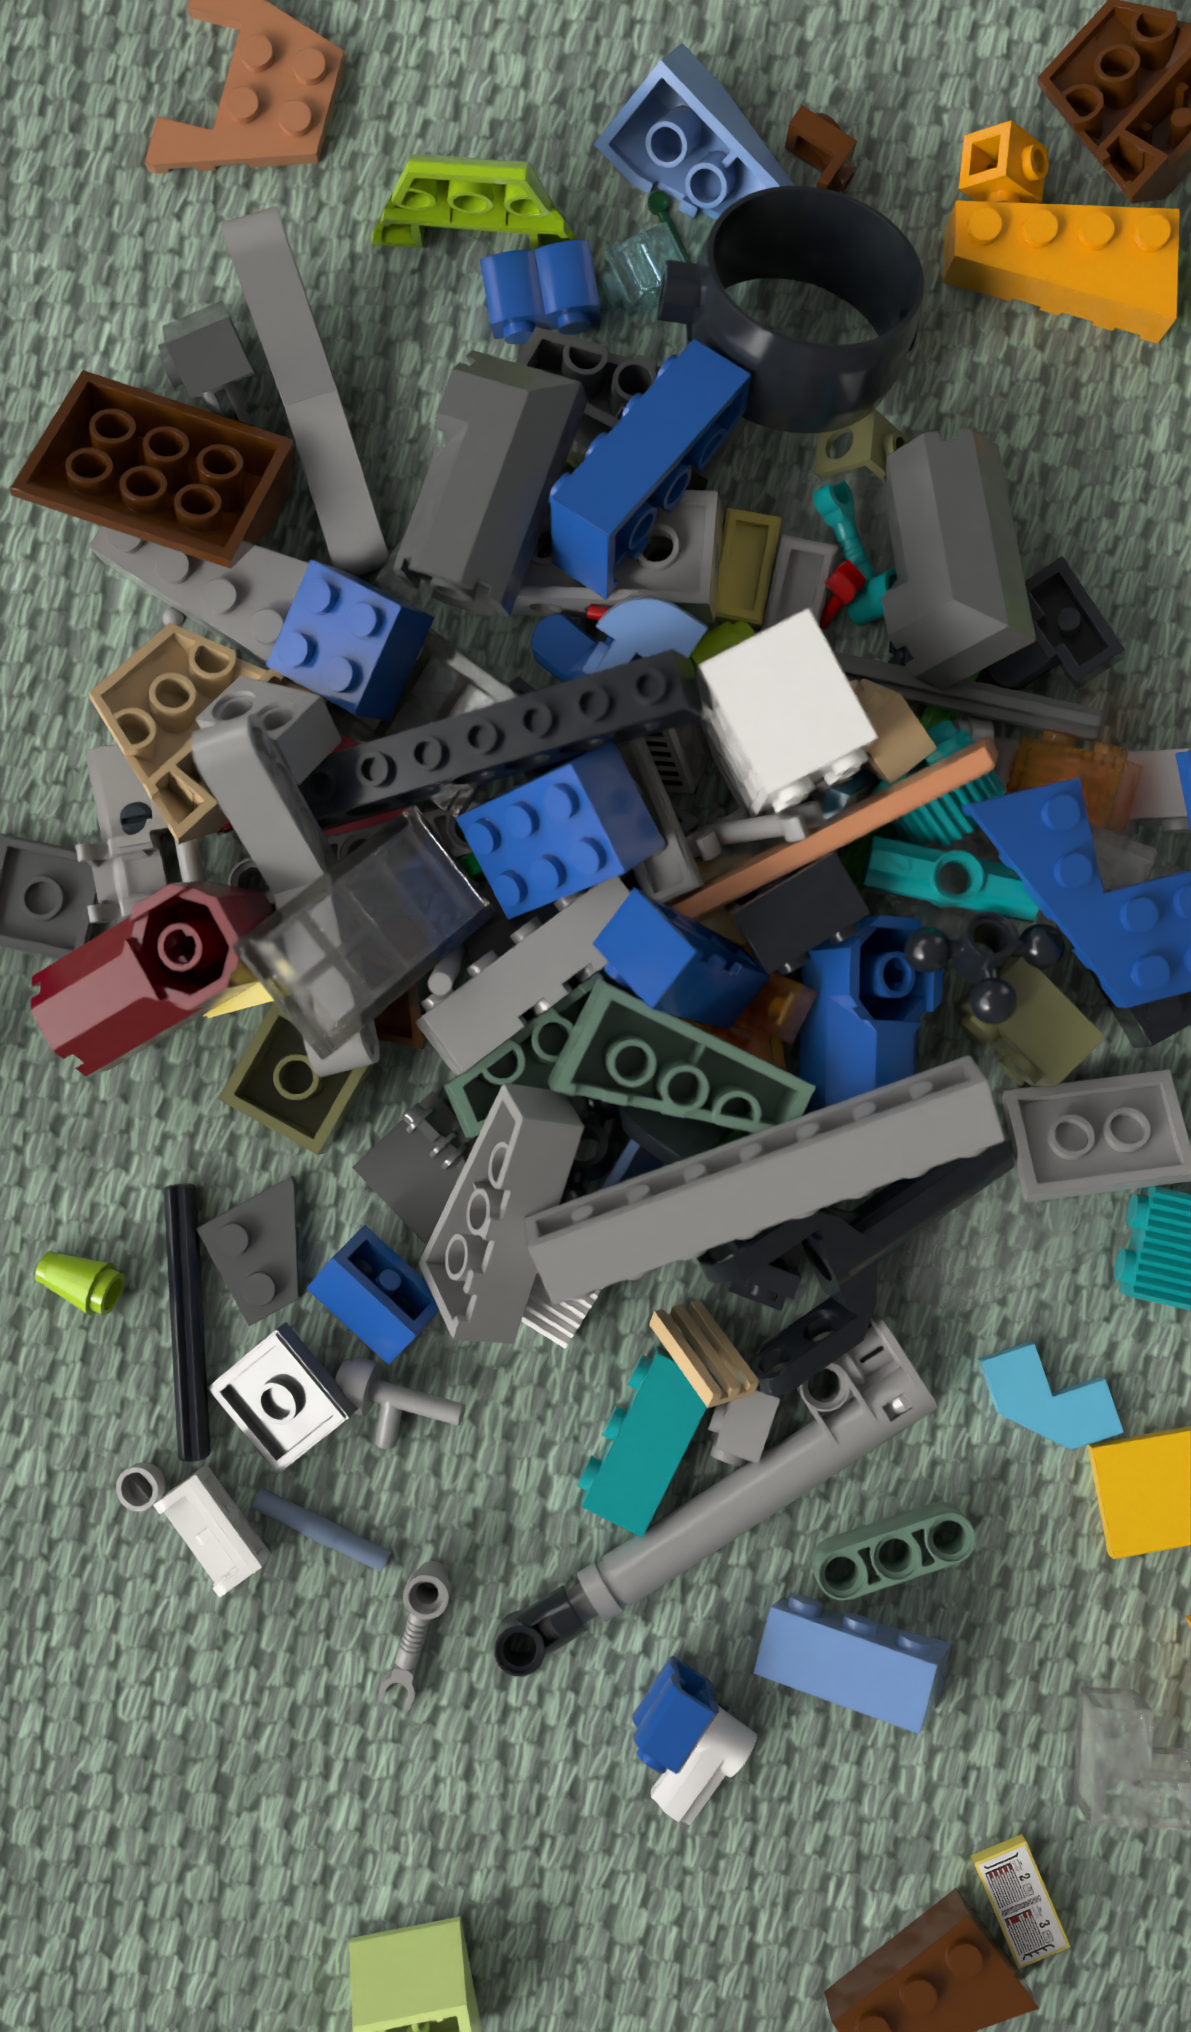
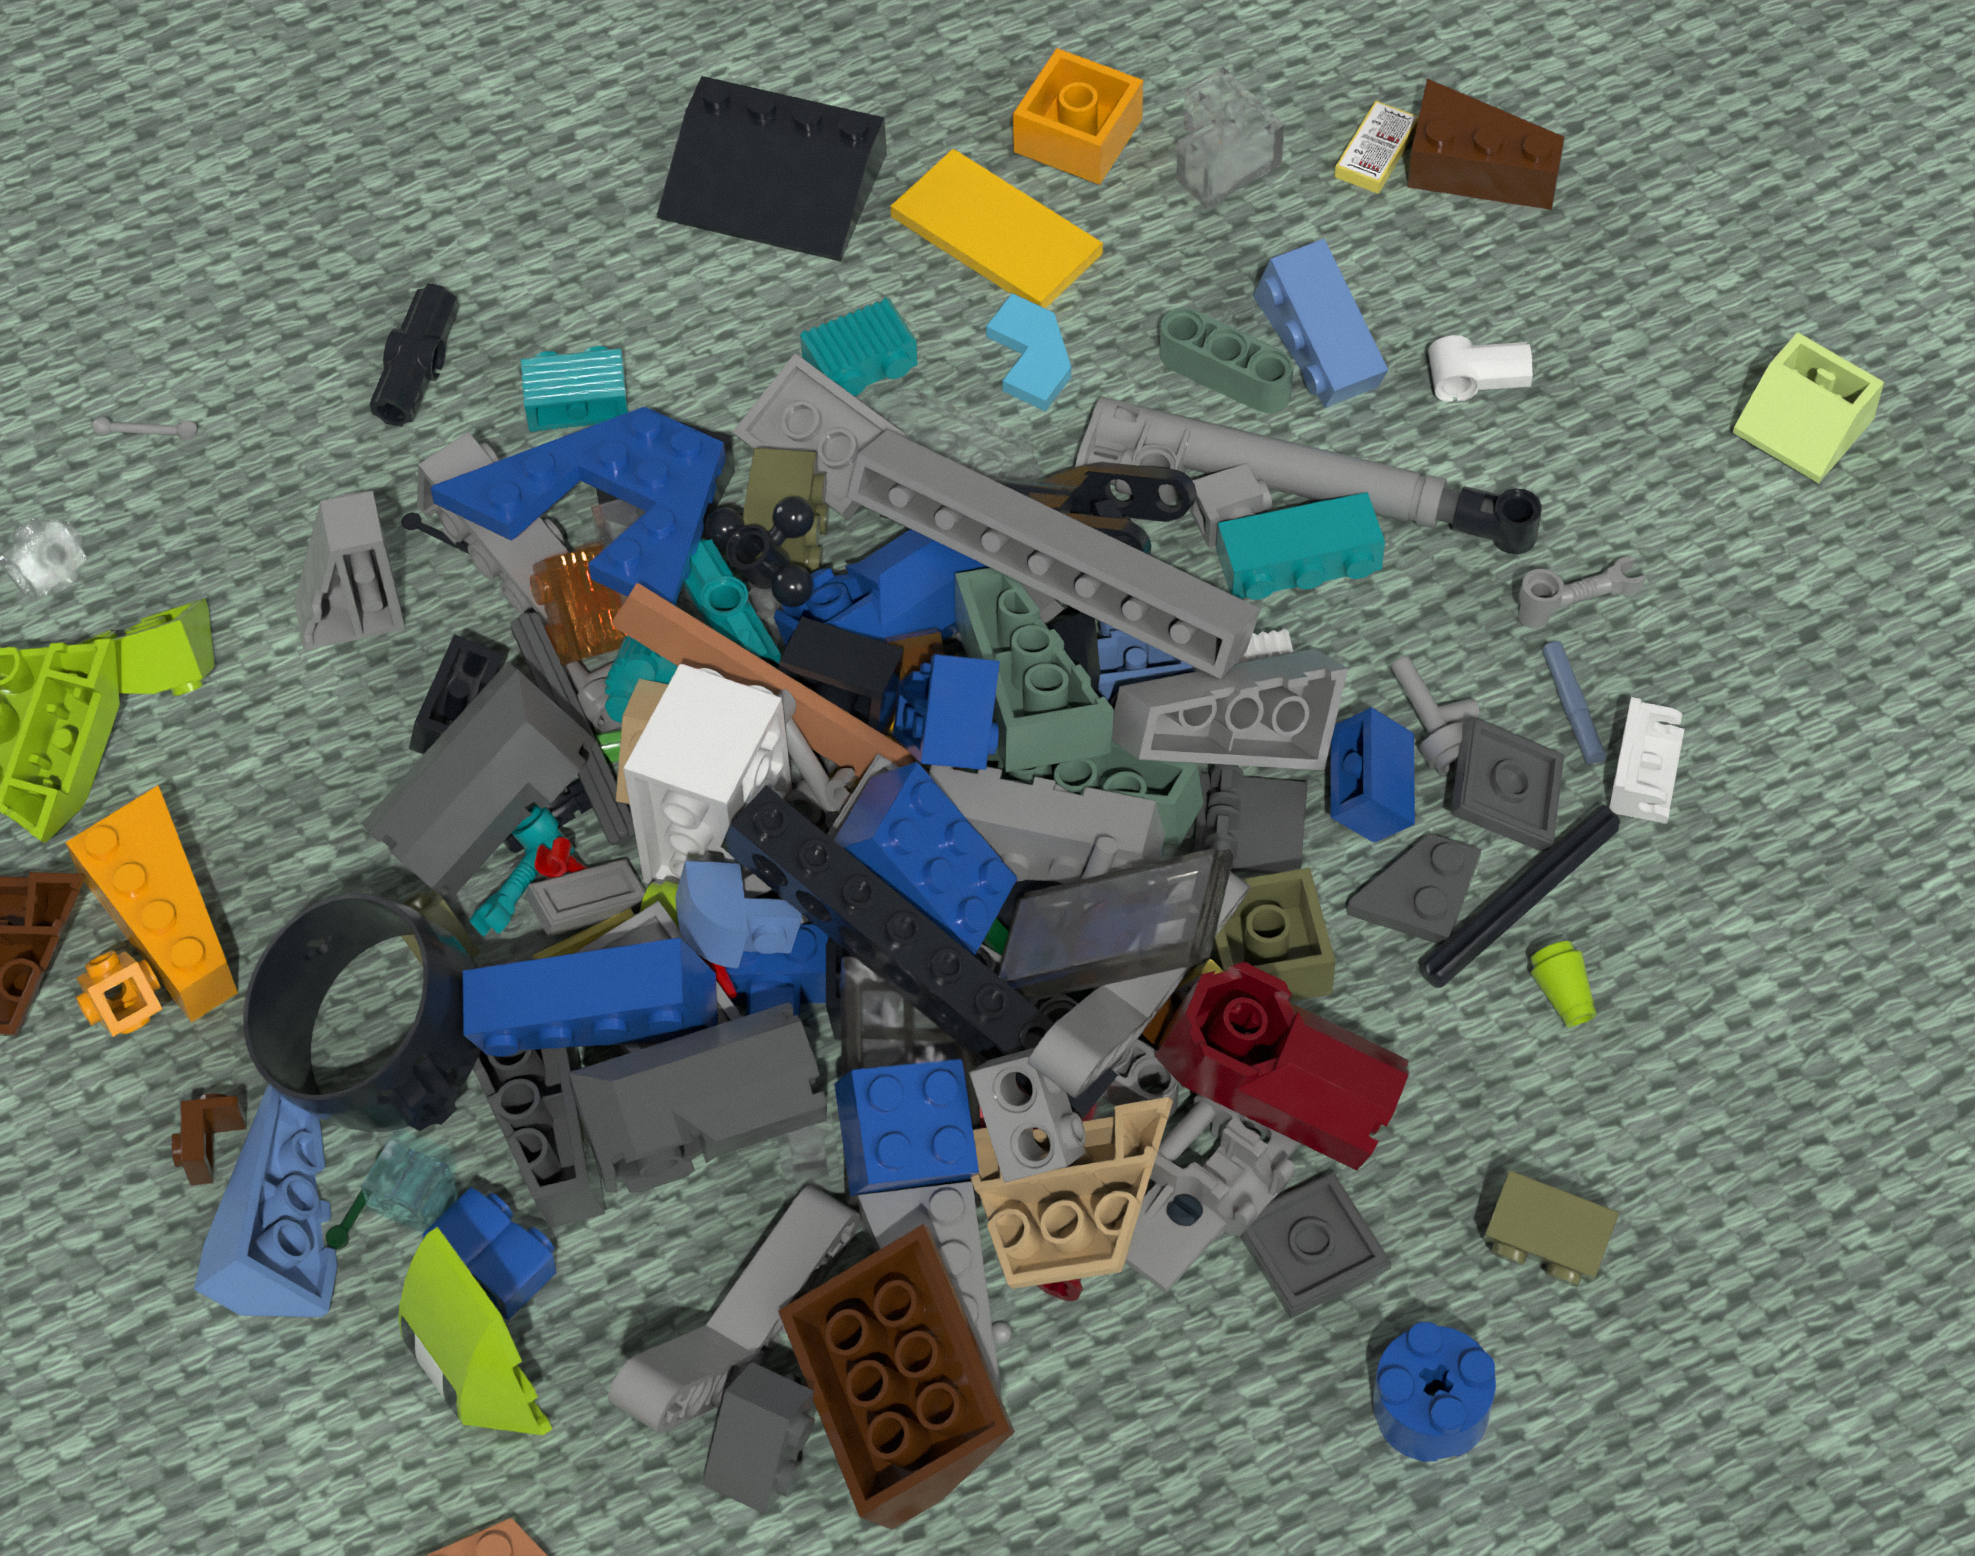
camera: 130 degrees left, 30 degrees down
(135, 1491) = (1674, 830): light grey hinge -> none
(673, 1716) = (1464, 391): blue brick -> none
(711, 1351) = (1207, 537): tan tile -> none

